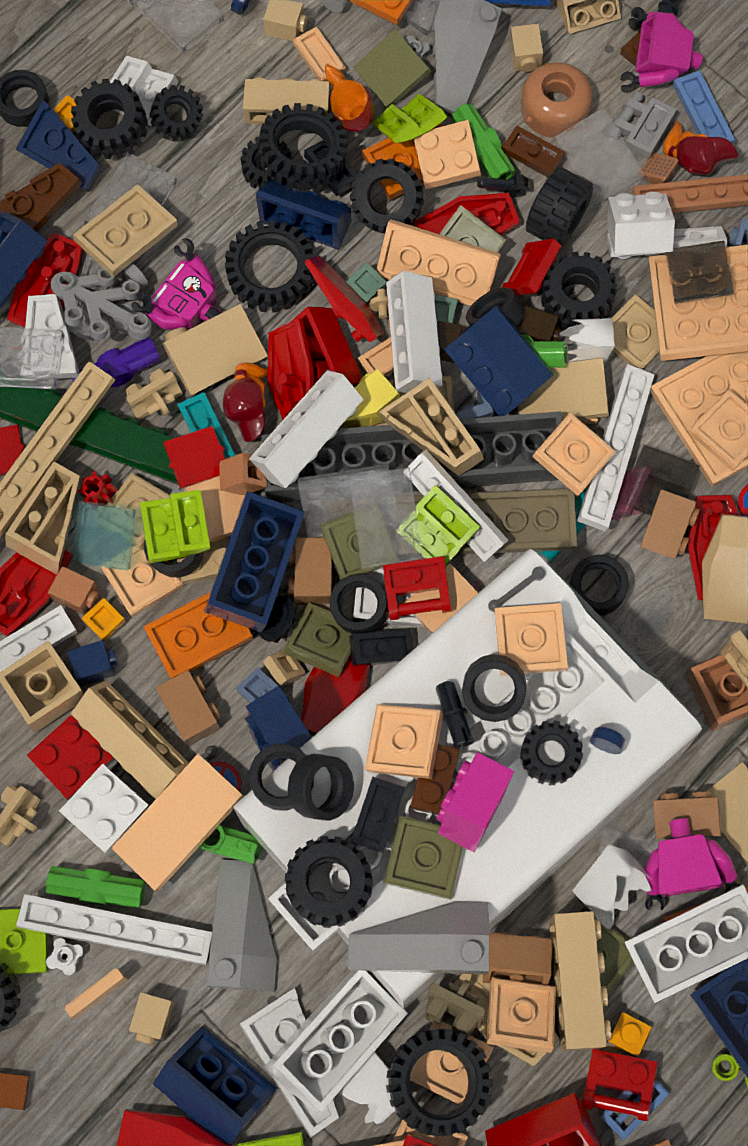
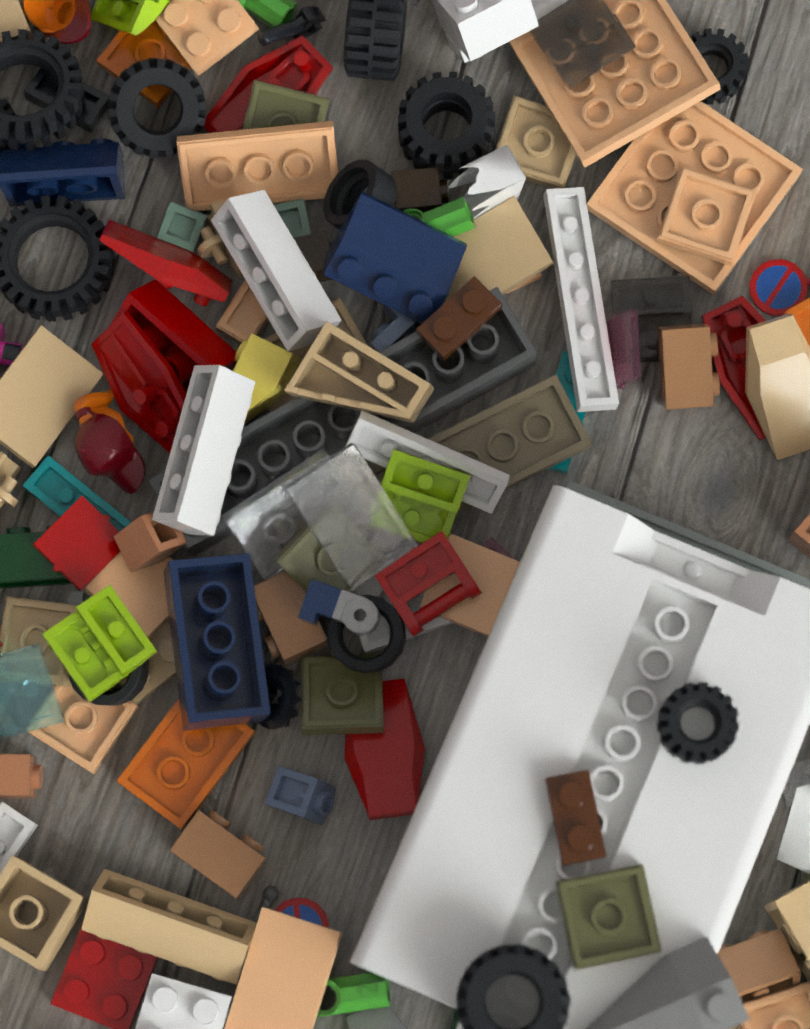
camera: 25 degrees left, 5 degrees up
(92, 662) = (76, 853): dark blue brick -> none
(103, 619) = (62, 794): light orange plate -> none
(255, 774) = (428, 902): black tyre -> none
(275, 721) = (354, 838): dark blue brick -> none
(283, 668) = (310, 752): tan plate -> none
(341, 787) = (426, 900): black tyre -> none
(348, 573) = (342, 606): none -> leg
(377, 815) = (530, 893): black plate -> none
(380, 647) = (416, 673): black plate -> none
(404, 741) = (519, 791): light nougat tile -> none
(454, 714) = (562, 730): black axle -> none
(473, 801) = (642, 827): dark pink brick -> none
(491, 713) = (614, 704): black tyre -> none
(524, 420) = (459, 318): none -> reddish brown plate
(532, 637) = (609, 597): light nougat plate -> none
(533, 266) = (376, 119): red plate -> none
(537, 574) = (579, 513): dark grey hinge -> none
(573, 454) = (537, 333): light nougat tile -> none
(607, 740) = (756, 677): dark blue tile -> none
(610, 565) = (643, 447): black tyre -> none

